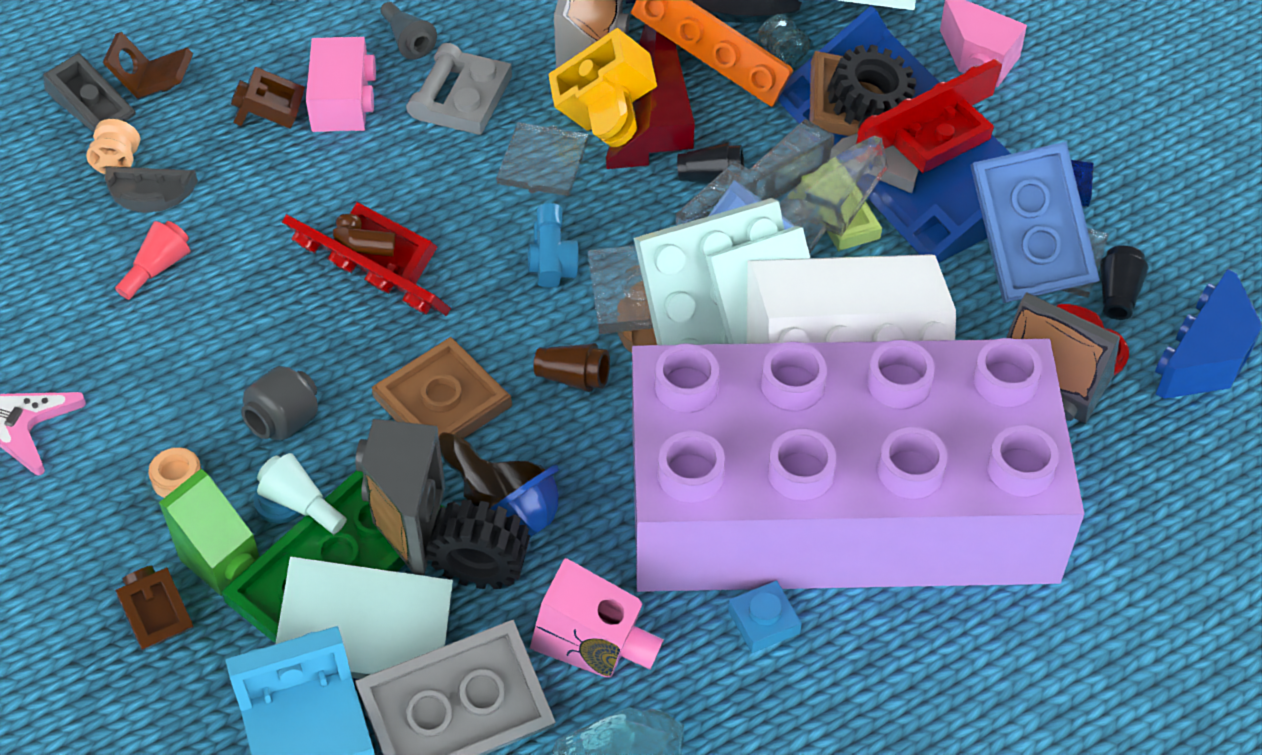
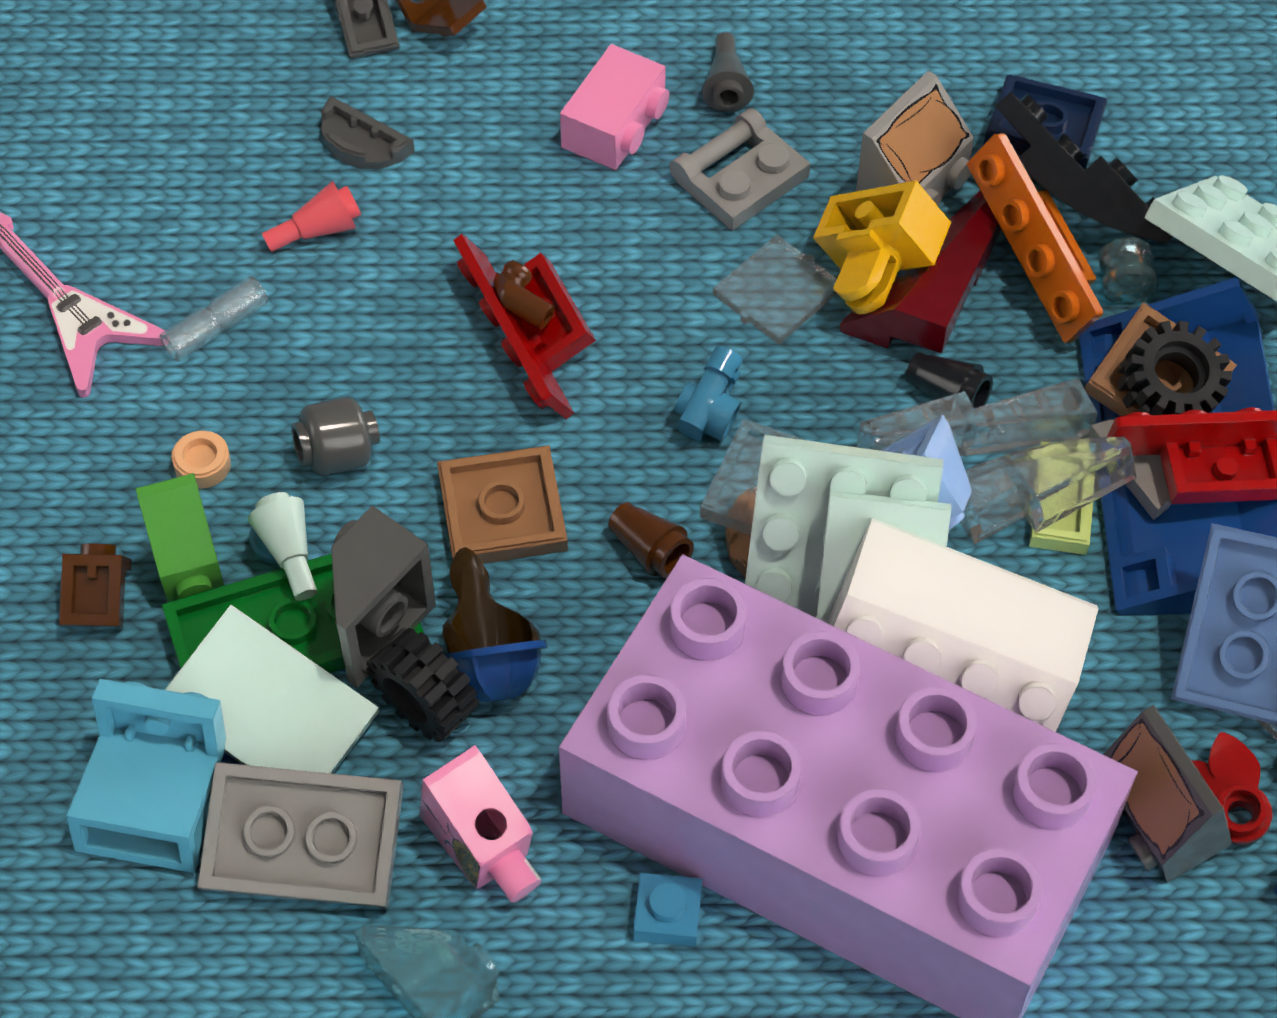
camera: 30 degrees right, 5 degrees up
(113, 145) = (349, 76): light nougat wheel -> none
(114, 370) = (208, 322): none -> clear piece
(268, 98) = (532, 91): reddish brown bracket -> none

